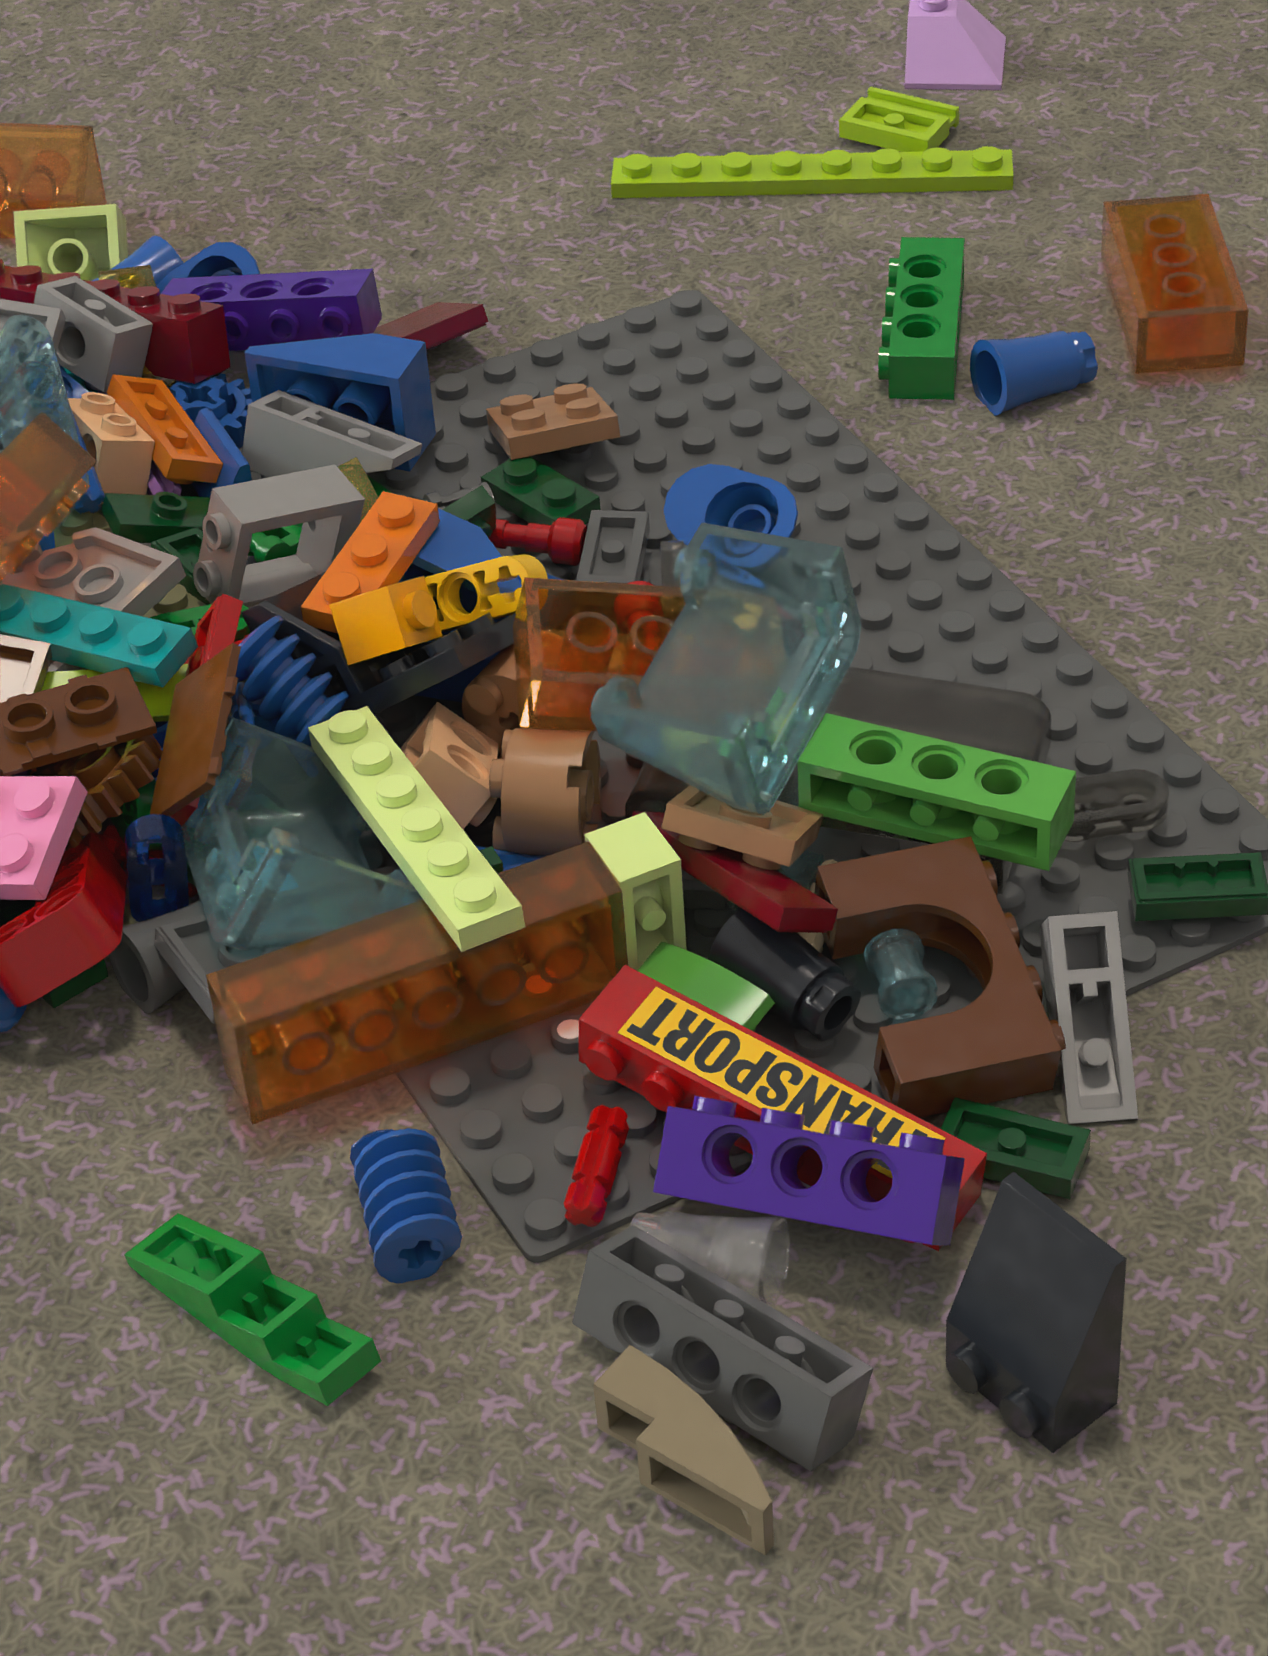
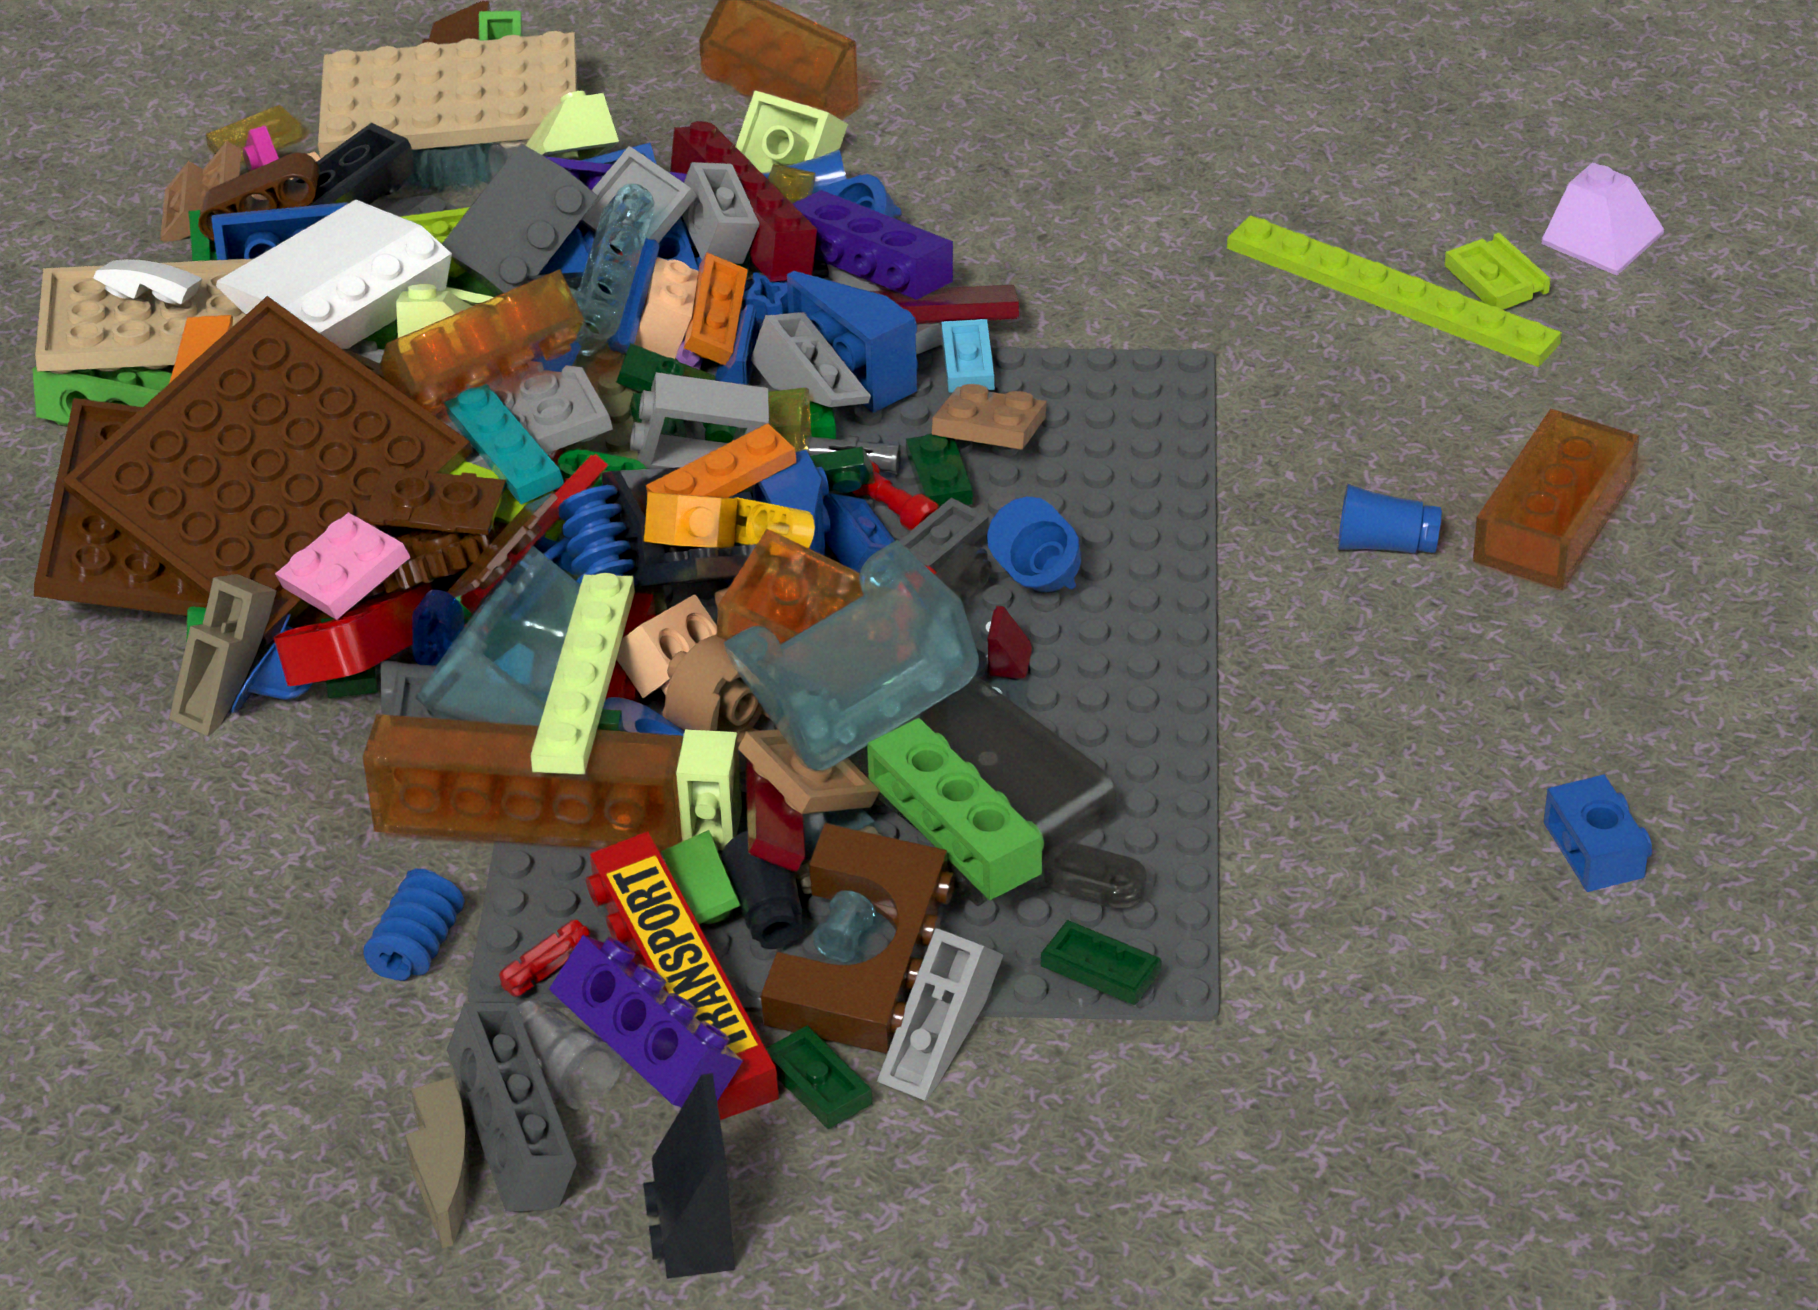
camera: 30 degrees right, 0 degrees up
(252, 1309) = (278, 947): green slope -> none
(469, 376) = (967, 353): none -> medium azure plate
(923, 319) = (1349, 447): green brick -> none

